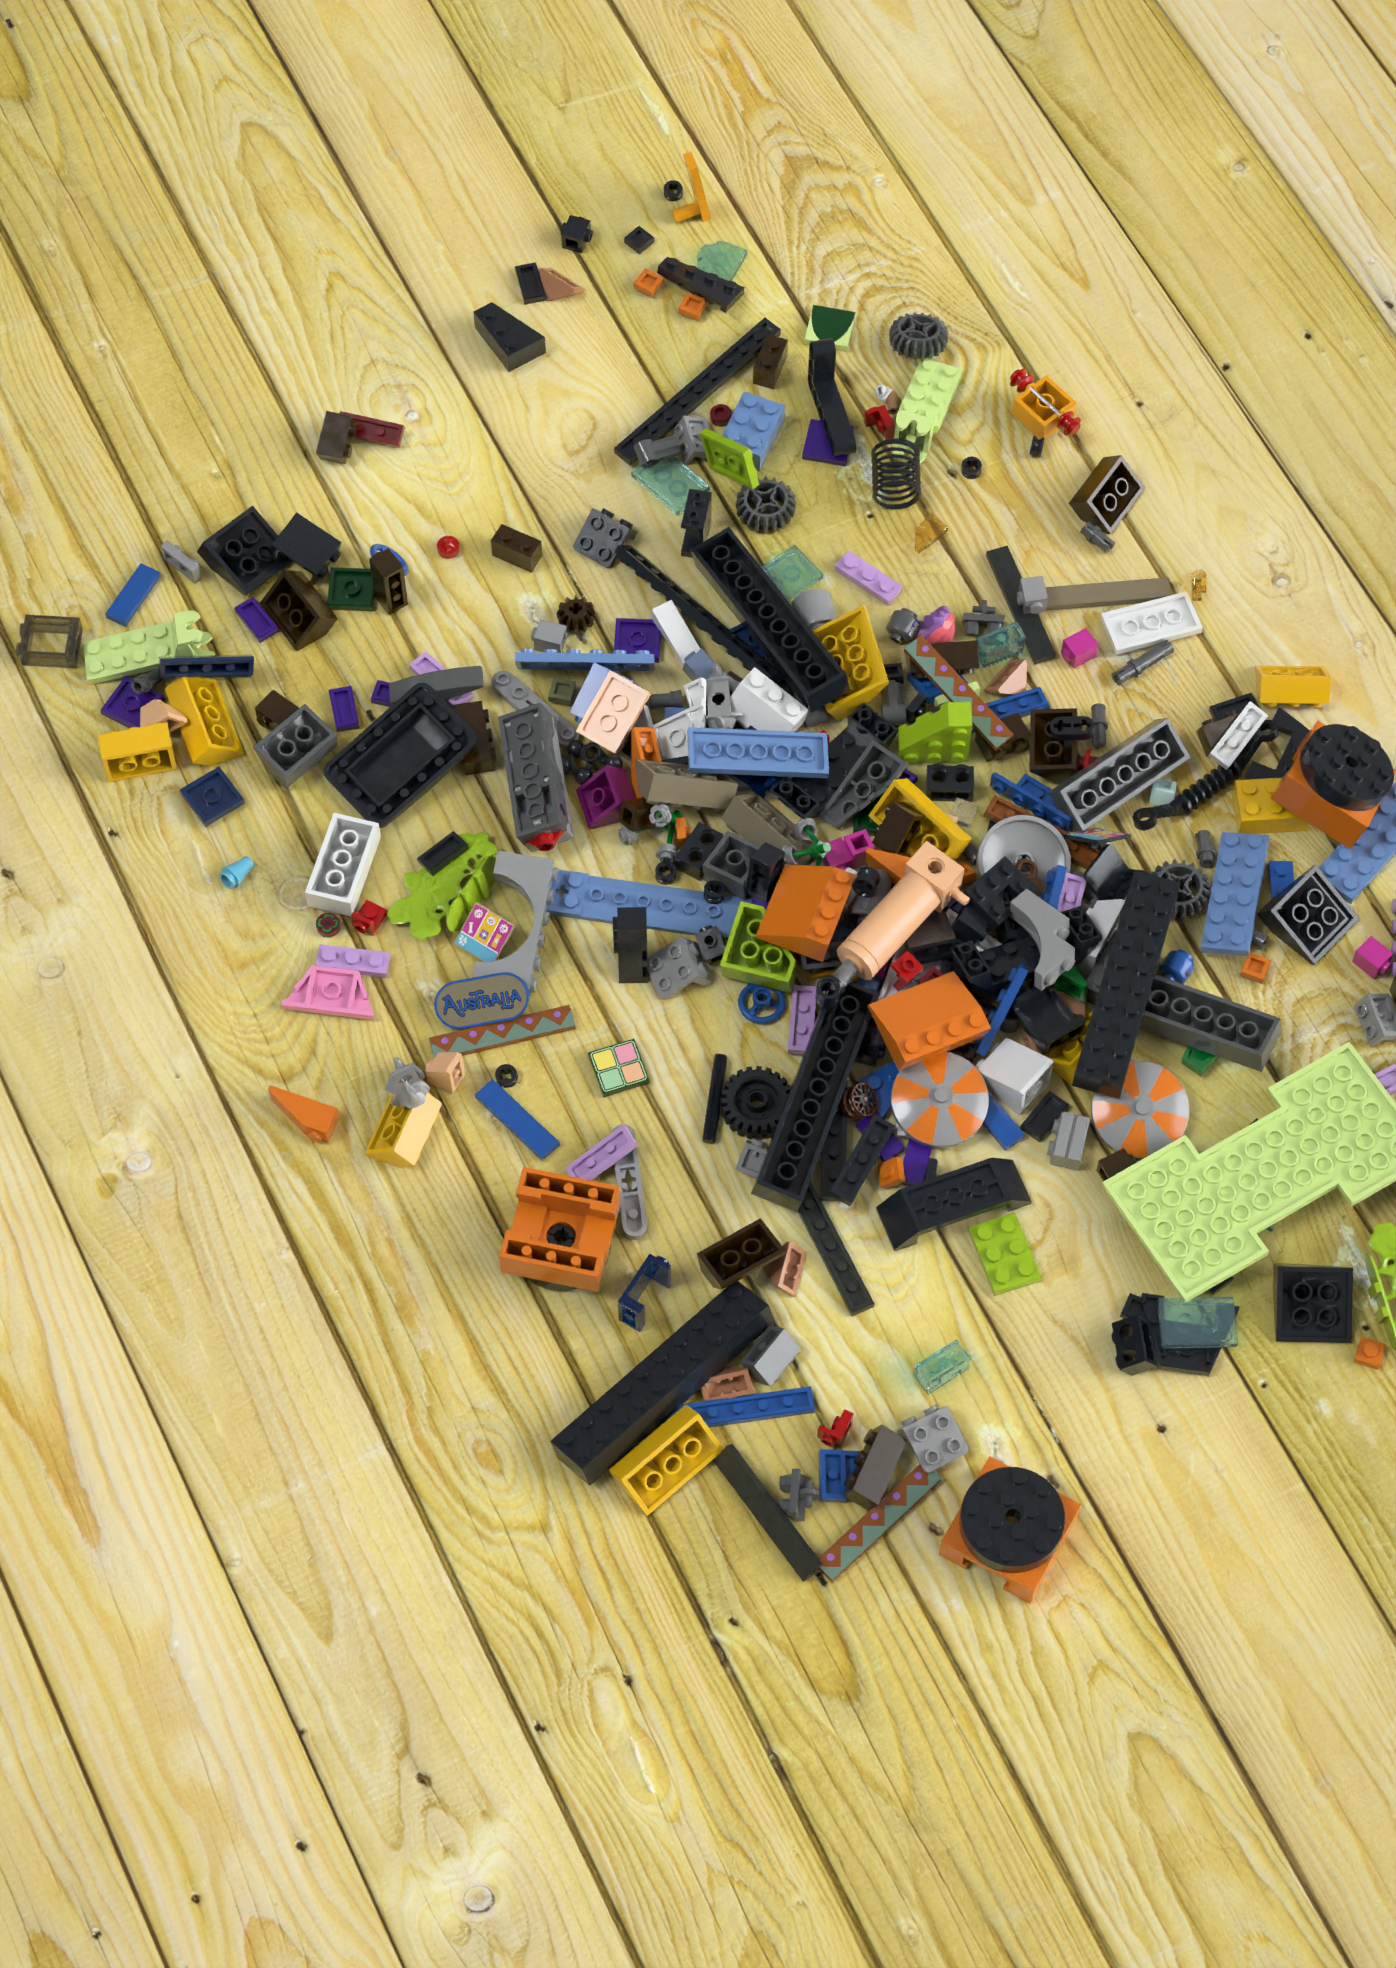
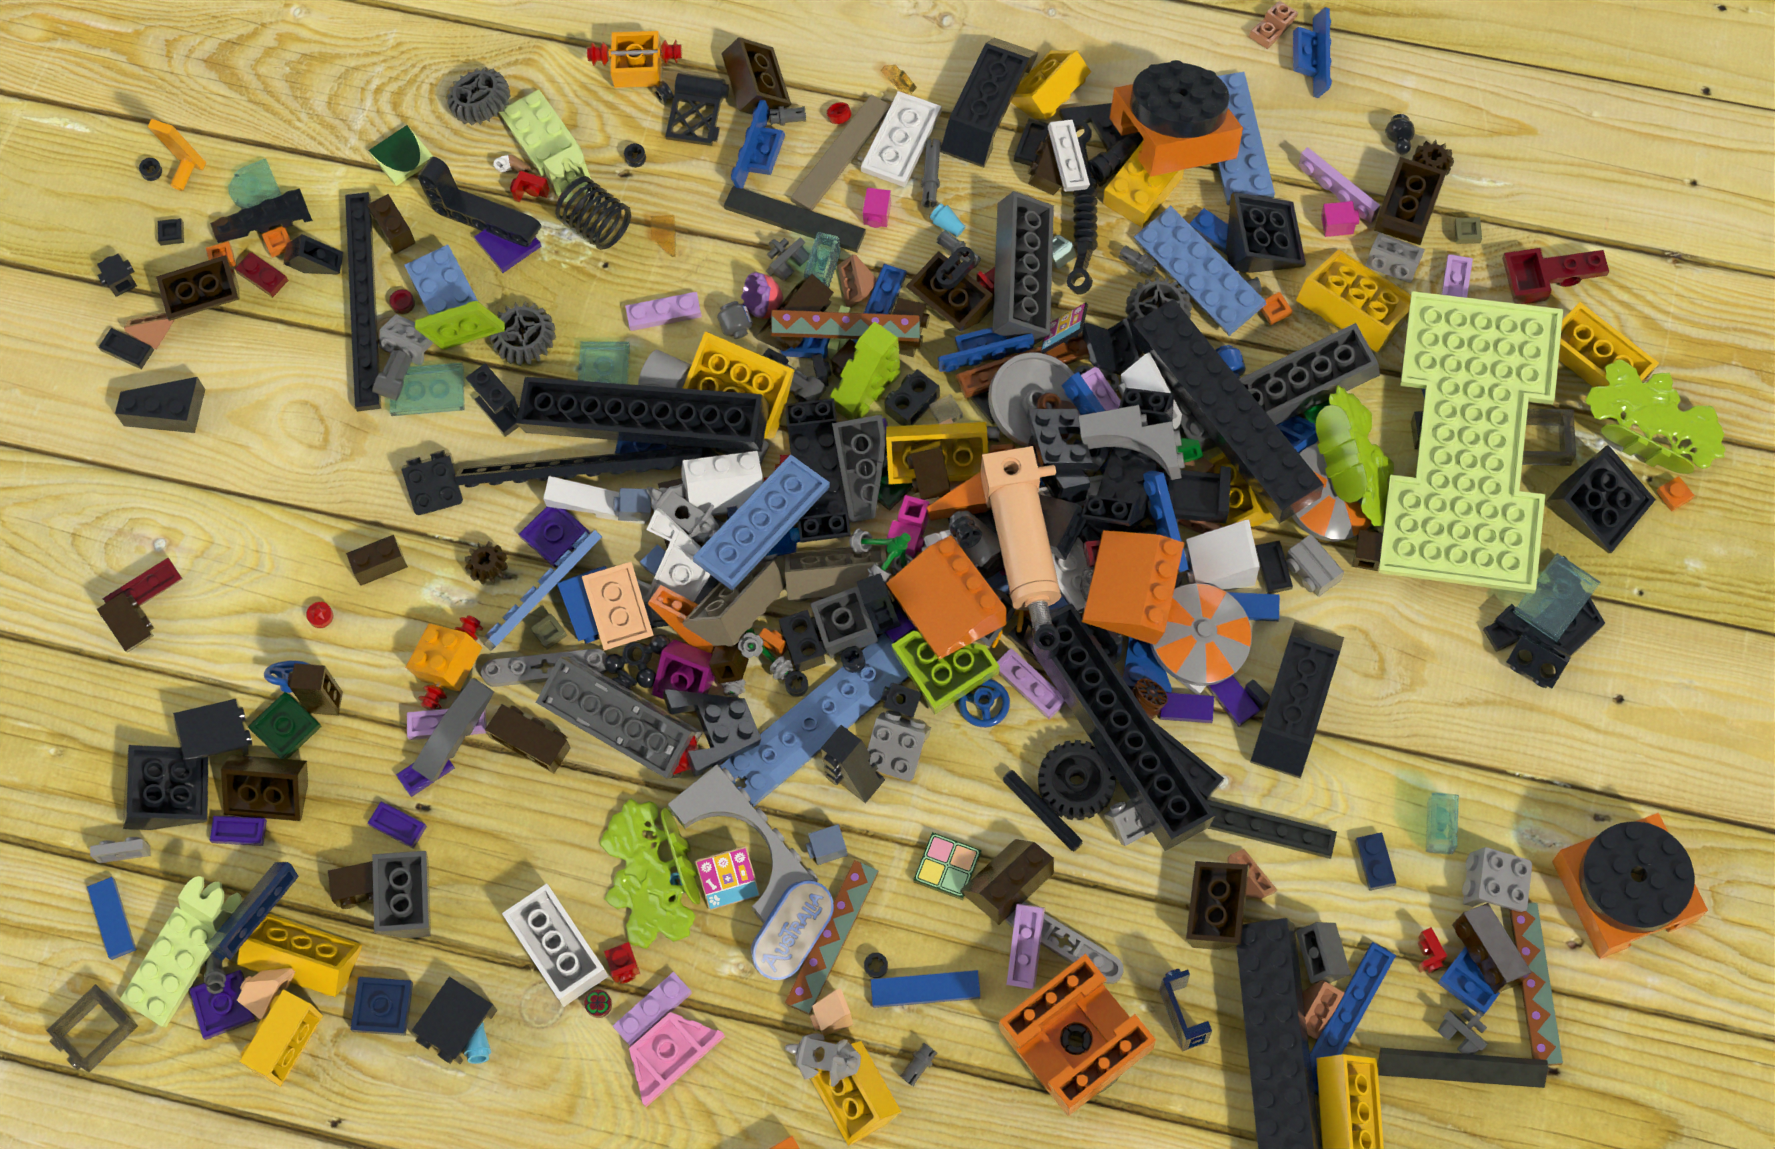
camera: 45 degrees left, 5 degrees up
(238, 843) = (452, 1020): none -> black panel
(400, 755) = (493, 813): black wedge -> none
(443, 853) = (617, 851): black tile -> none
(456, 1154) = (921, 1060): none -> dark grey pin
(483, 642) = (445, 659): none -> light orange brick
(549, 636) = (488, 601): light grey brick -> none
(564, 978) = (826, 845): none -> sand blue brick
(592, 847) = (724, 722): none -> black wing
(611, 286) = (198, 287): none -> dark brown slope
(641, 1112) = (1009, 879): none -> dark brown slope
(659, 317) = (261, 274): none -> dark red plate
(671, 699) = (636, 552): dark grey pin -> none
(700, 335) = (312, 256): none -> black slope
(861, 1160) = (1204, 738): black plate -> none
(875, 1347) = (1375, 861): none -> dark blue plate
(891, 1173) = (1230, 724): orange plate -> none
(907, 969) = (1073, 566): red bracket -> none
(1004, 1254) = (1372, 695): lime plate -> none
(1032, 595) = (800, 202): light grey brick -> none
(1052, 537) = (759, 148): none -> blue bracket
(1061, 469) = (700, 91): none -> black piece
(1114, 699) = (947, 220): none -> medium azure cone
(1132, 568) = (839, 113): none -> red tile
(1159, 1051) = (1299, 432): none -> blue wing
(1183, 1109) = (1351, 460): none -> lime plant
(1237, 649) = (985, 100): none -> black slope
(1265, 767) = (1106, 162): none -> black axle
(1314, 1013) = (1352, 293): none -> yellow slope
(1326, 1252) = (1553, 417): none -> clear smoke window

